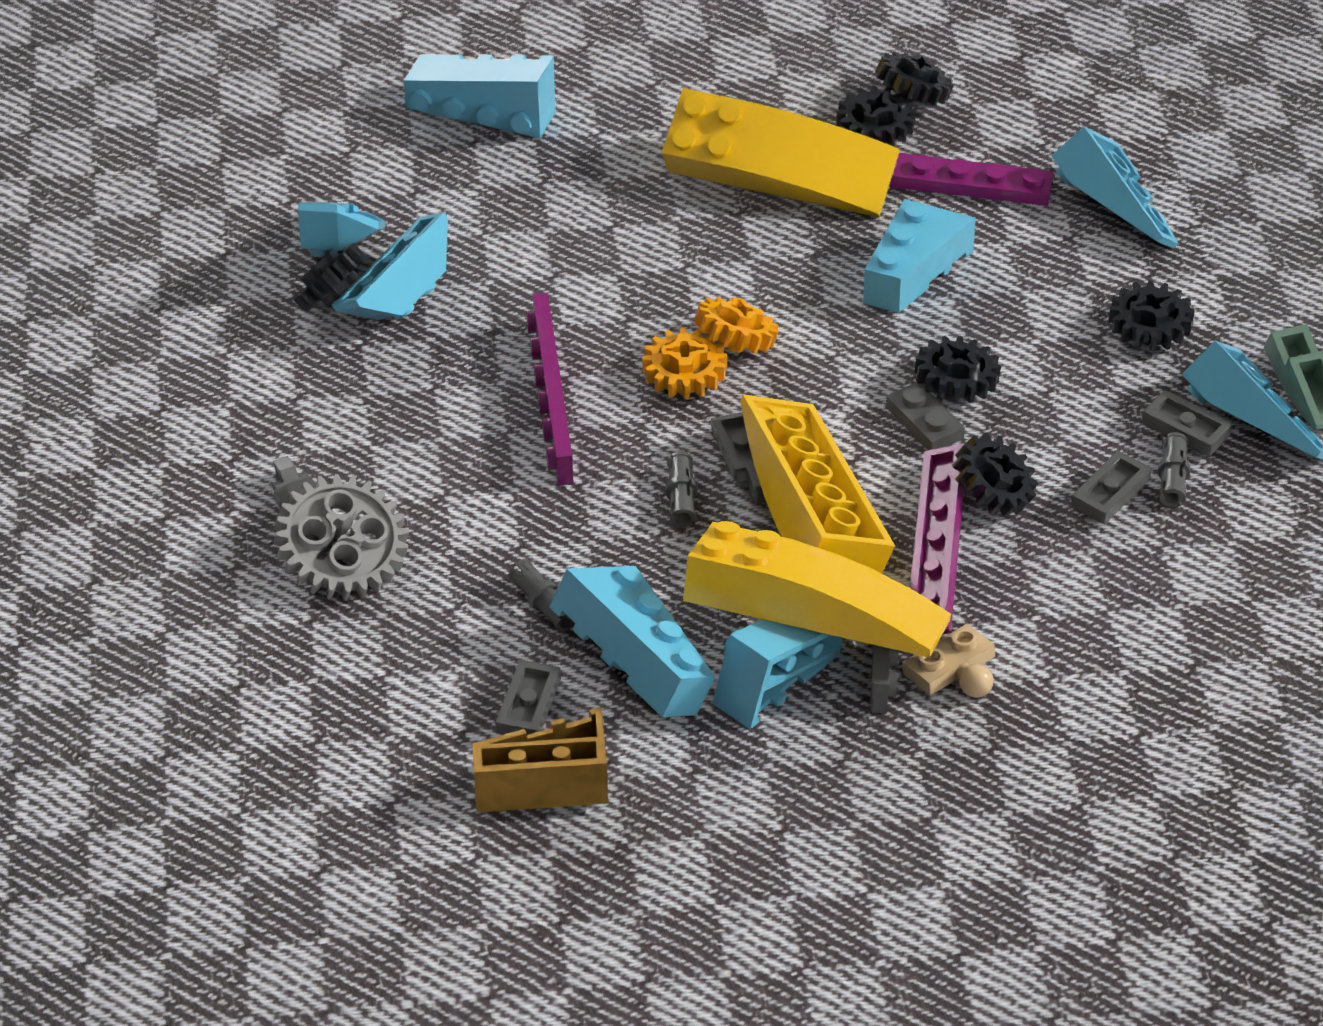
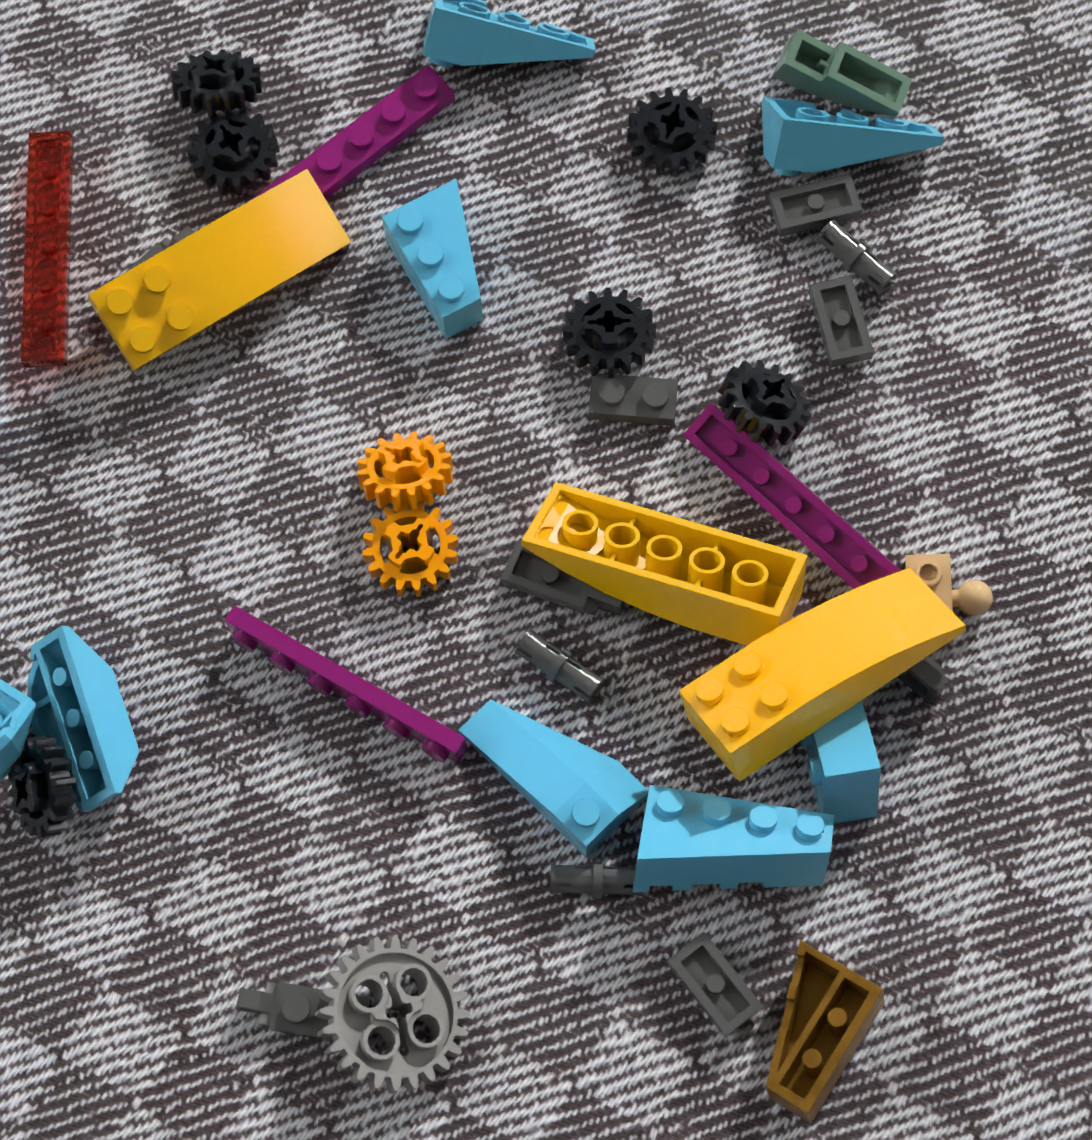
camera: 50 degrees left, 25 degrees up
(598, 525) = (563, 779): none -> medium azure wedge
(707, 76) = (47, 250): none -> clear red plate

